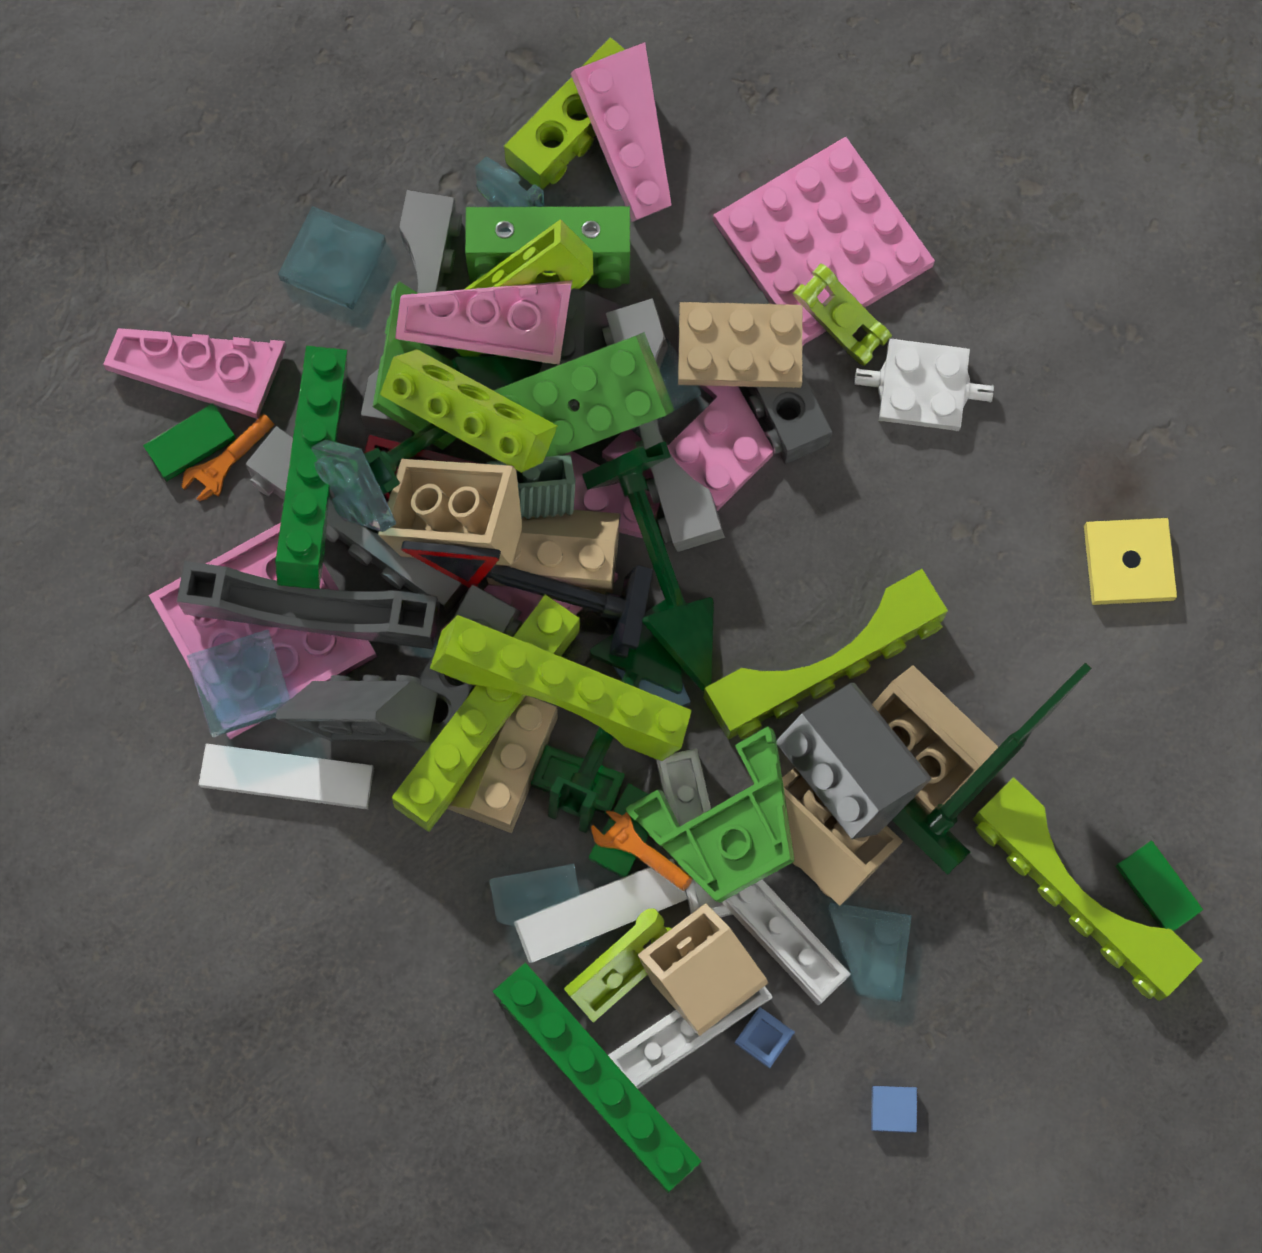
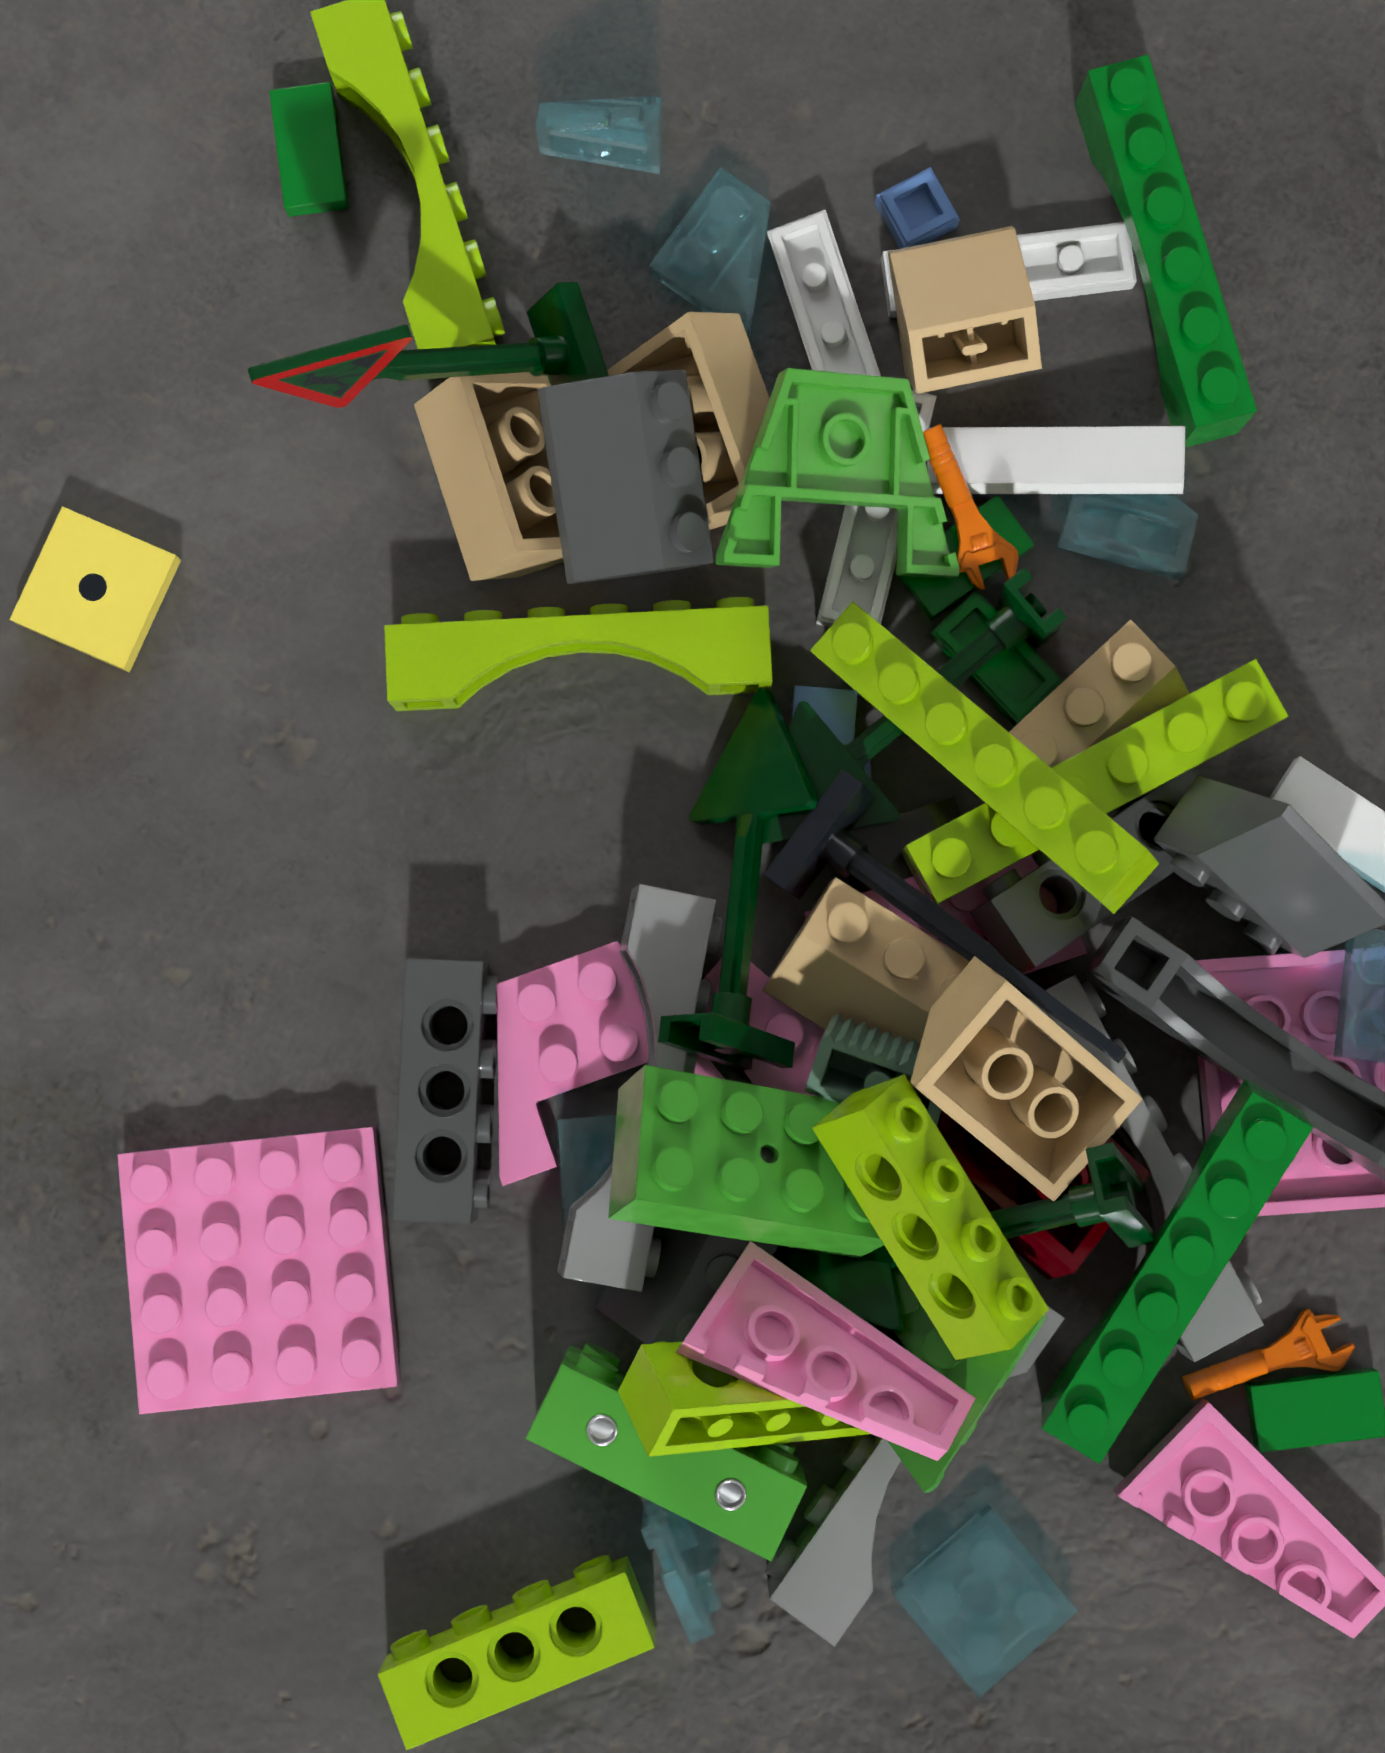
camera: 150 degrees left, 10 degrees up
(353, 485) = (1157, 1183): clear light blue plate -> none
(616, 968) = (1067, 377): lime plate -> none
(625, 120) = (453, 1603): bright pink wing -> none
(740, 344) = (468, 1150): tan plate -> none
(841, 315) = (296, 1132): lime plate -> none
(894, 1109) = (798, 45): medium blue tile -> none
(924, 384) = (235, 978): white plate -> none
(966, 987) = (605, 131): none -> clear light blue wing

